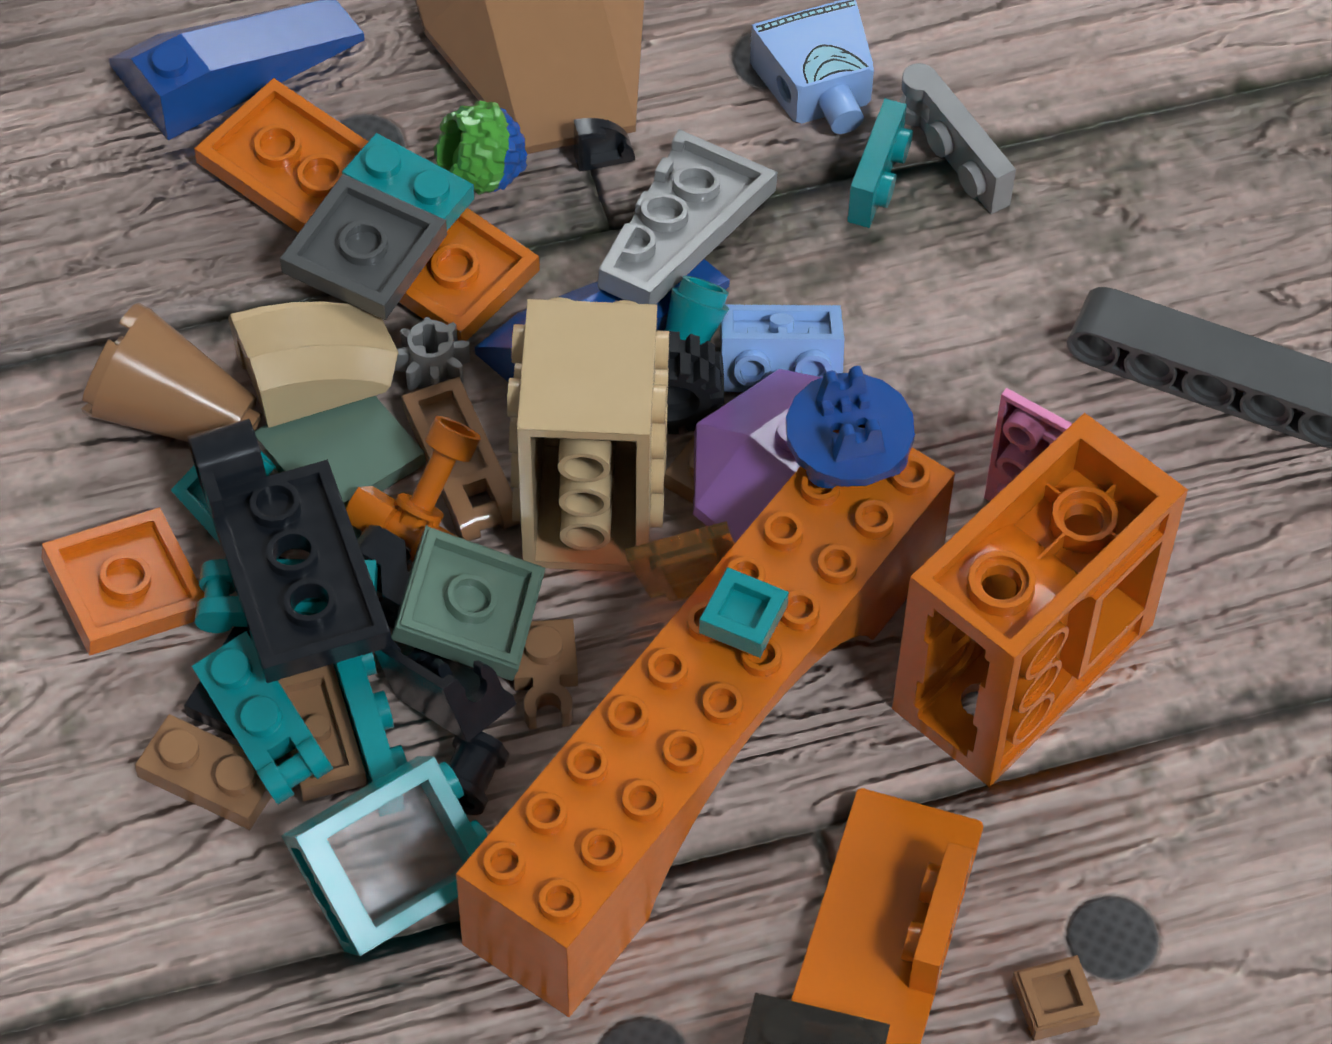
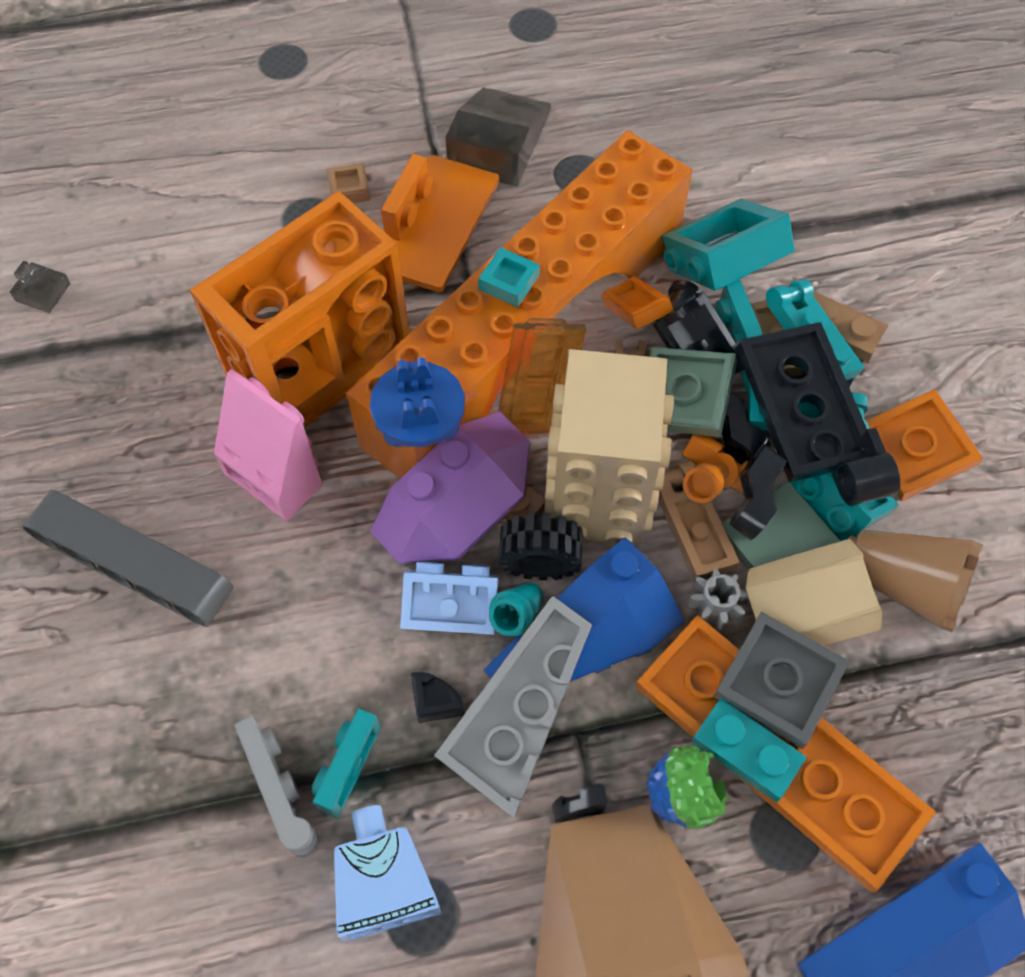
camera: 175 degrees left, 5 degrees up
(370, 463) = (759, 499): none -> black piece
(530, 729) = (636, 302): none -> orange tile
(785, 247) = (435, 698): none -> black tile

